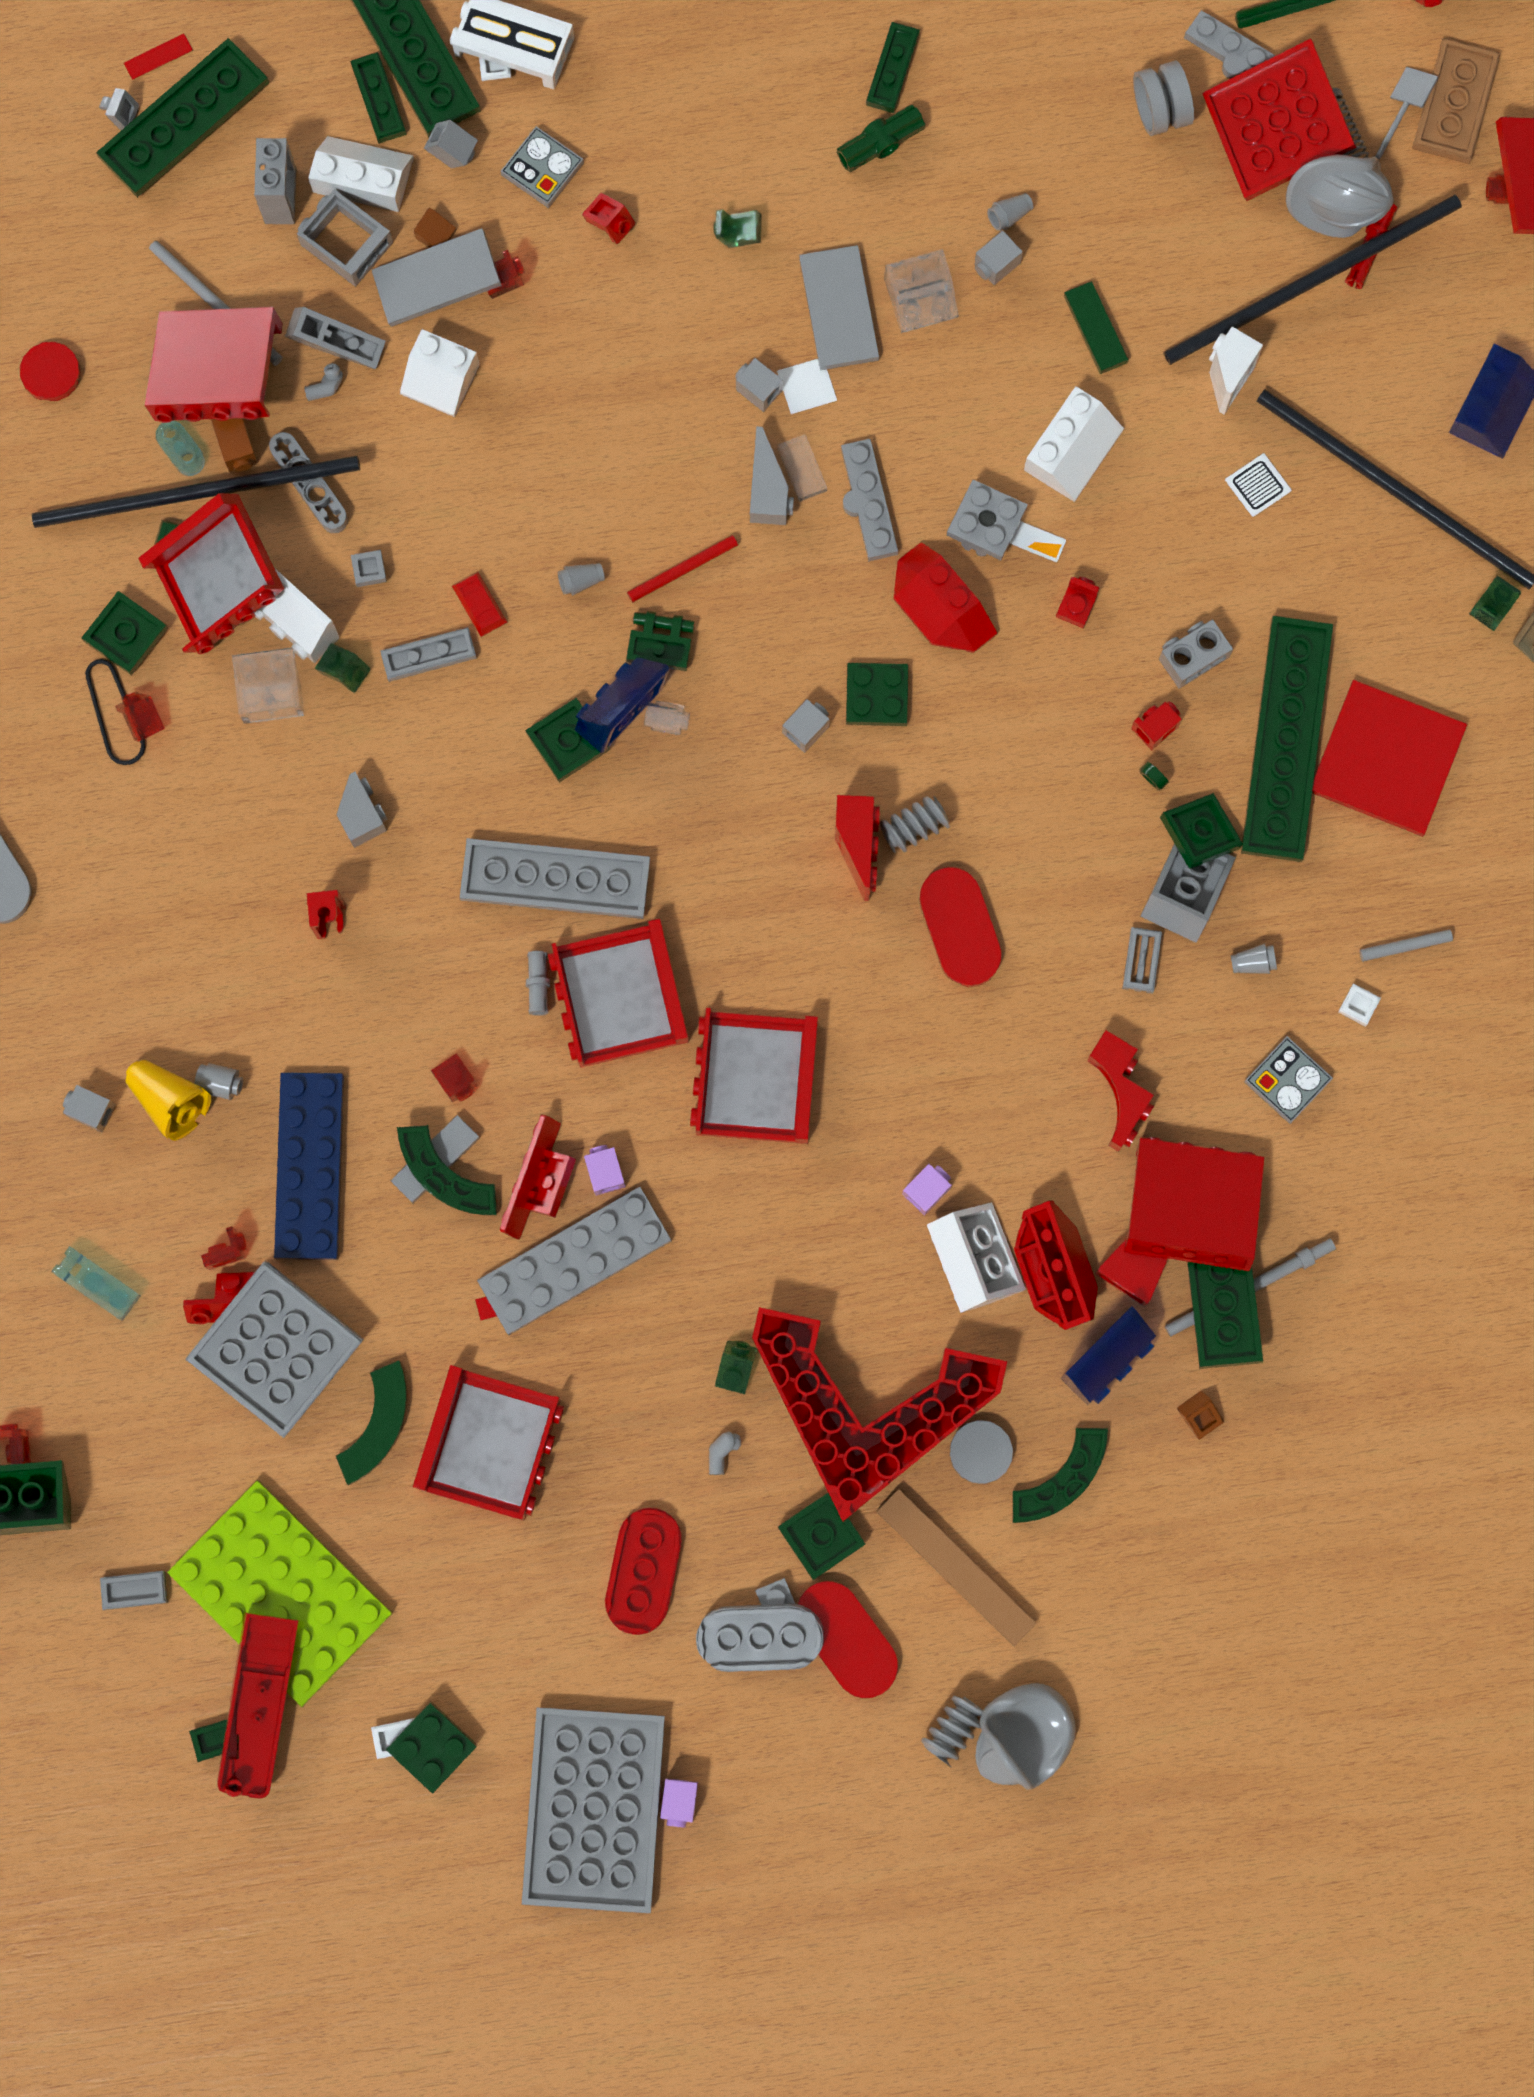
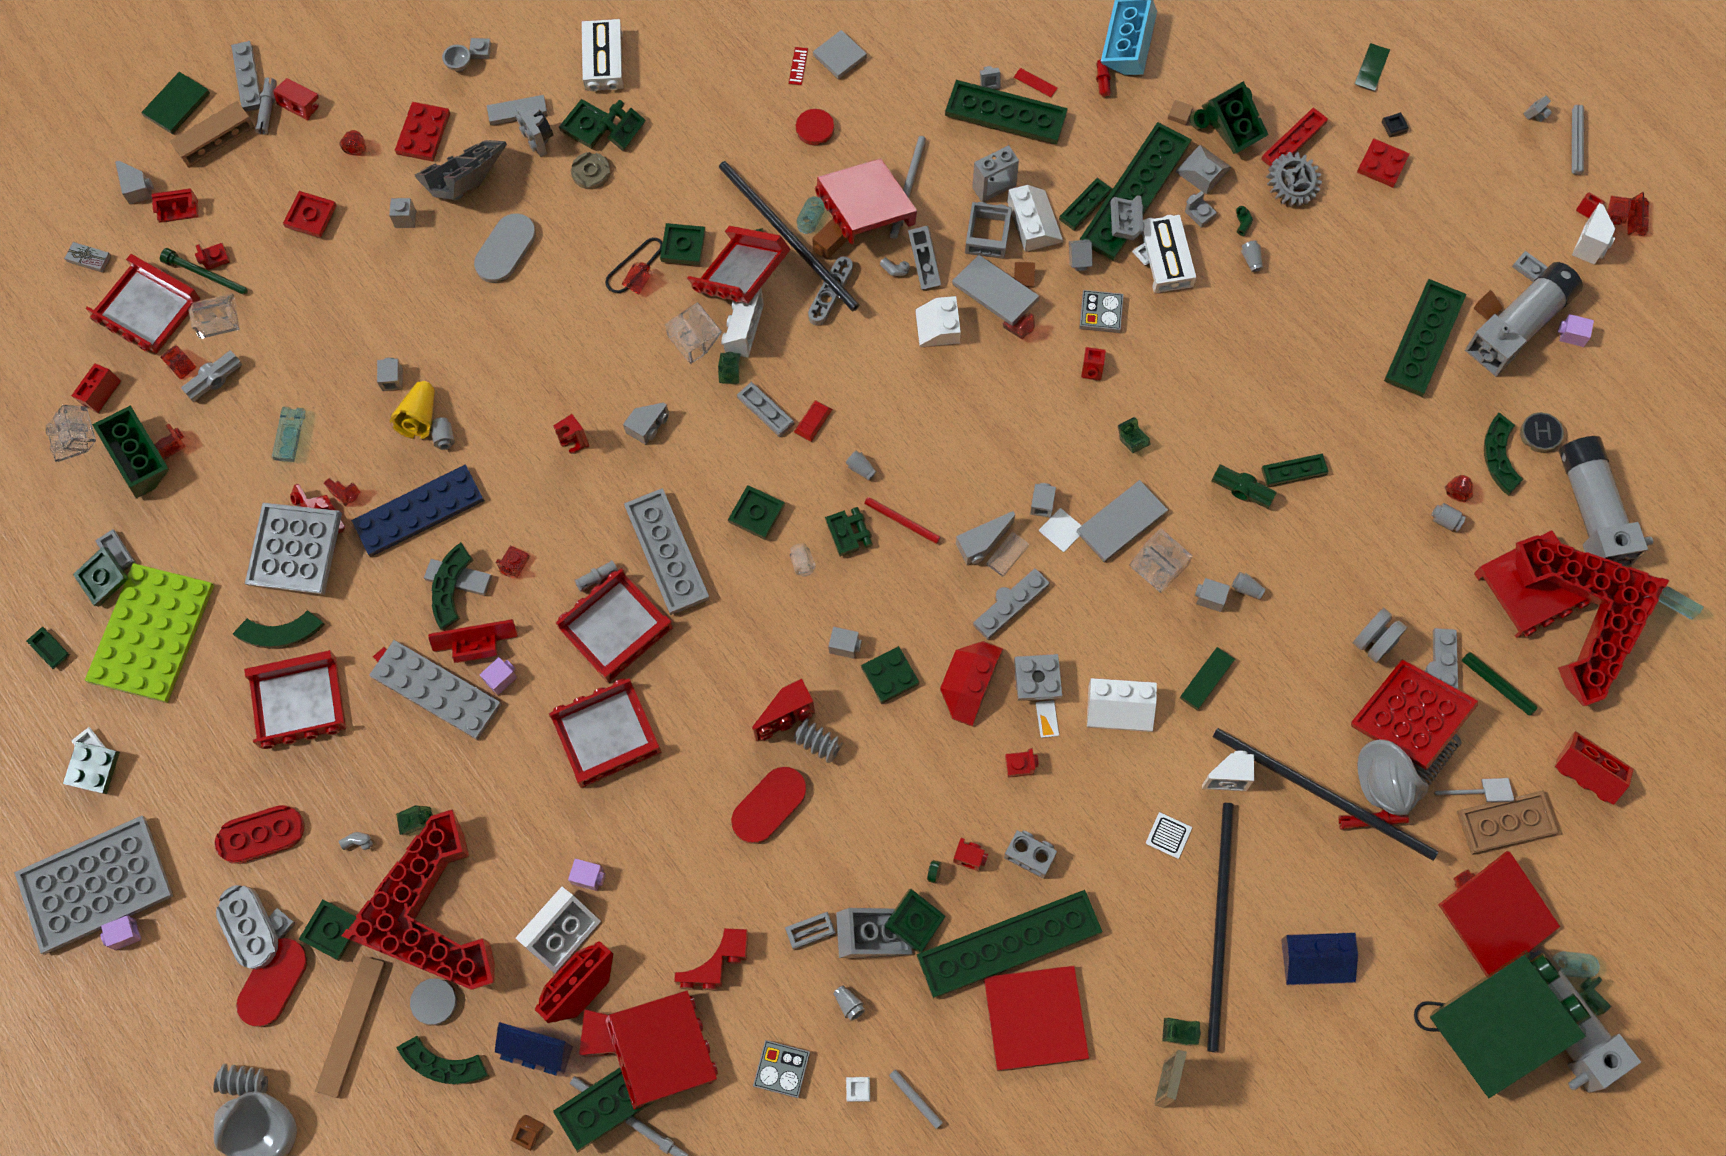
camera: 60 degrees right, 10 degrees down
(164, 1621) = (100, 576): none -> plate
(256, 1705) = (70, 653): red piece -> none
(368, 568) = (797, 349): light grey plate -> none
(438, 56) = (1127, 217): none -> light grey bracket
(620, 702) = (792, 527): clear blue slope -> none

